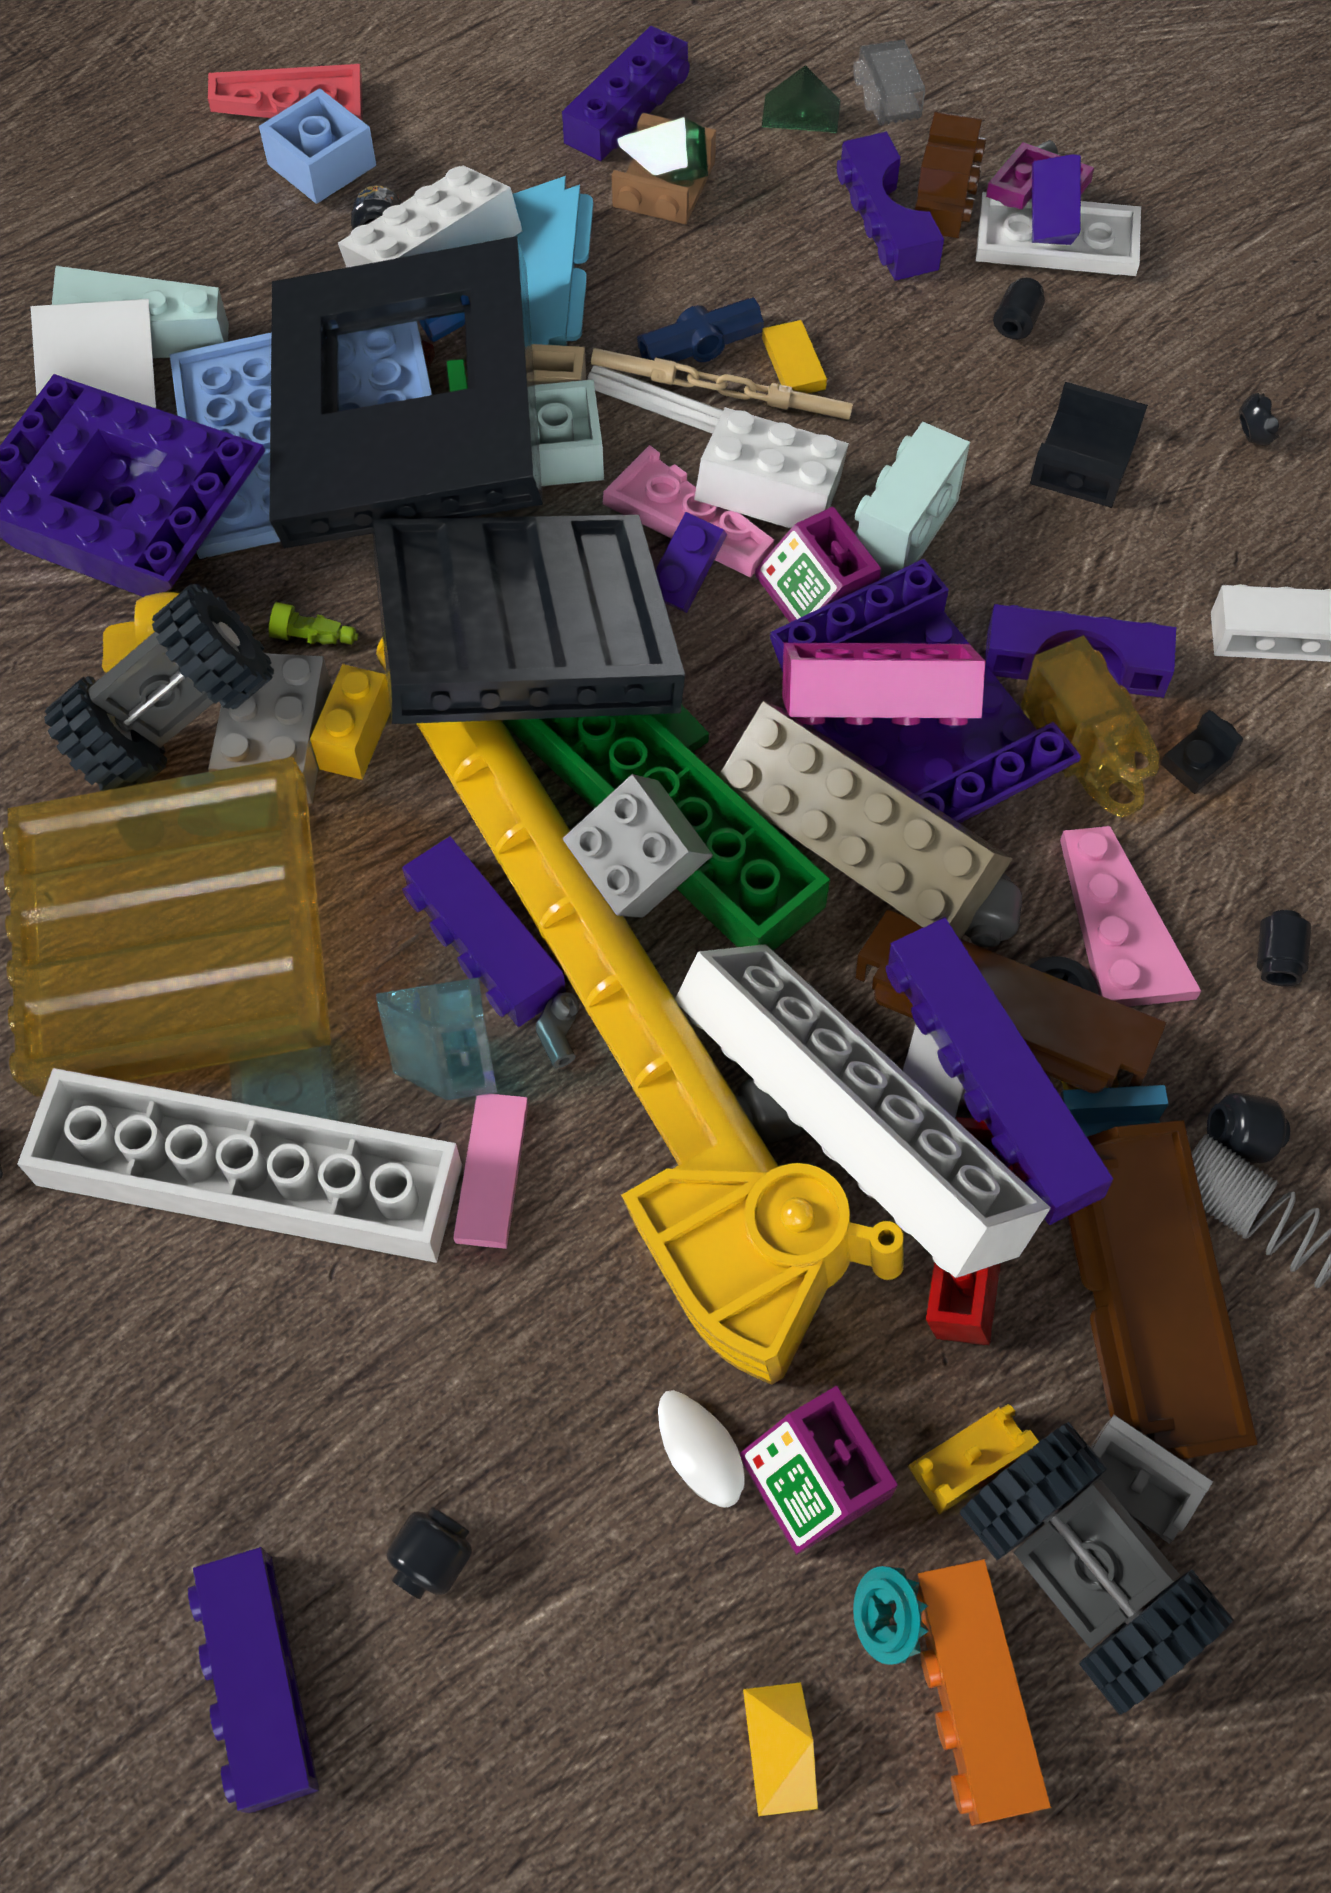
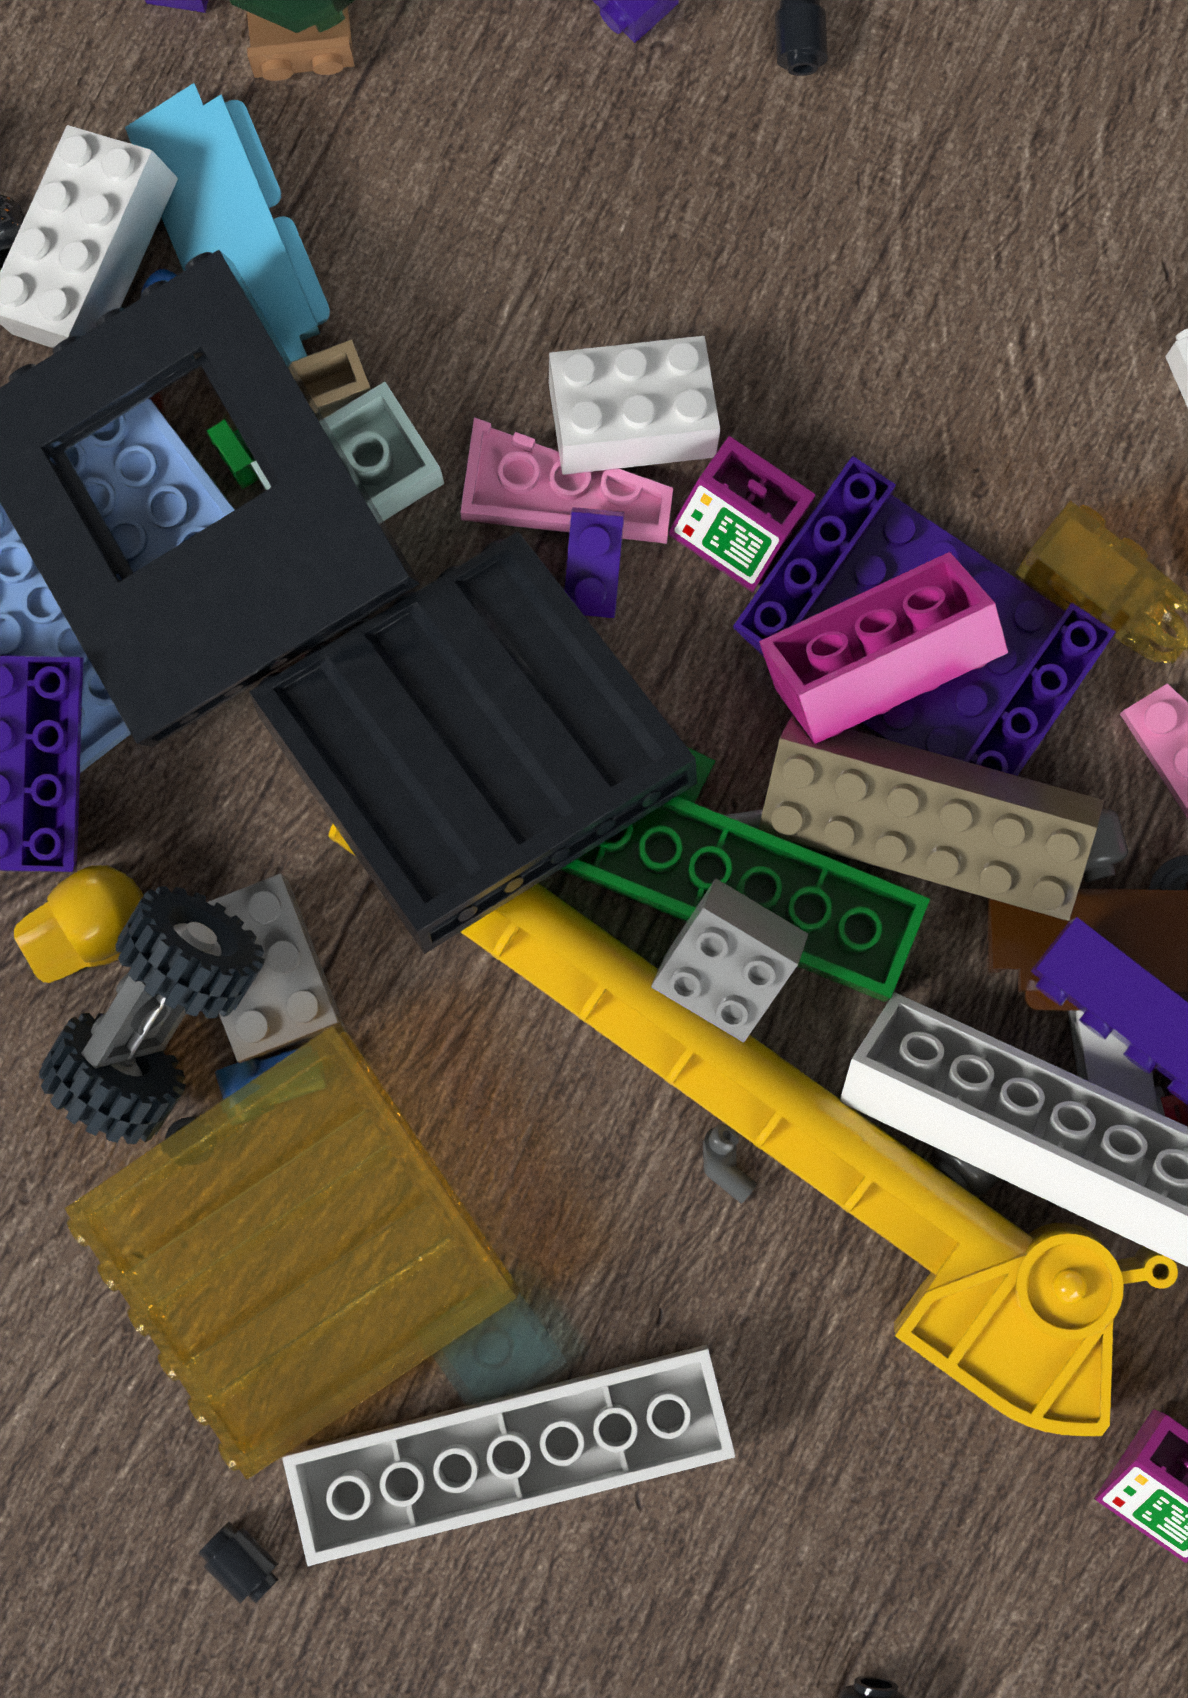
camera: 20 degrees left, 20 degrees up
(287, 623) = (238, 822): lime piece -> none
(351, 722) = (343, 923): yellow piece -> none
(440, 1038) = (632, 1242): clear light blue slope -> none
(482, 931) = (602, 1097): dark purple brick -> none
(491, 1171) = (736, 1336): bright pink tile -> none
(655, 399) = (472, 346): white axle -> none
(665, 372) = (445, 310): tan piece -> none
(700, 1449) = (1060, 1511): white arm -> none
(702, 332) = (456, 234): dark blue piece -> none
(794, 357) = (575, 217): yellow tile -> none
(912, 498) = (803, 383): light aqua brick -> none
(1088, 445) = (954, 197): black panel -> none
(1135, 652) = (1115, 463): dark purple arch -> none
(1258, 421) = (1126, 81): black plate -> none

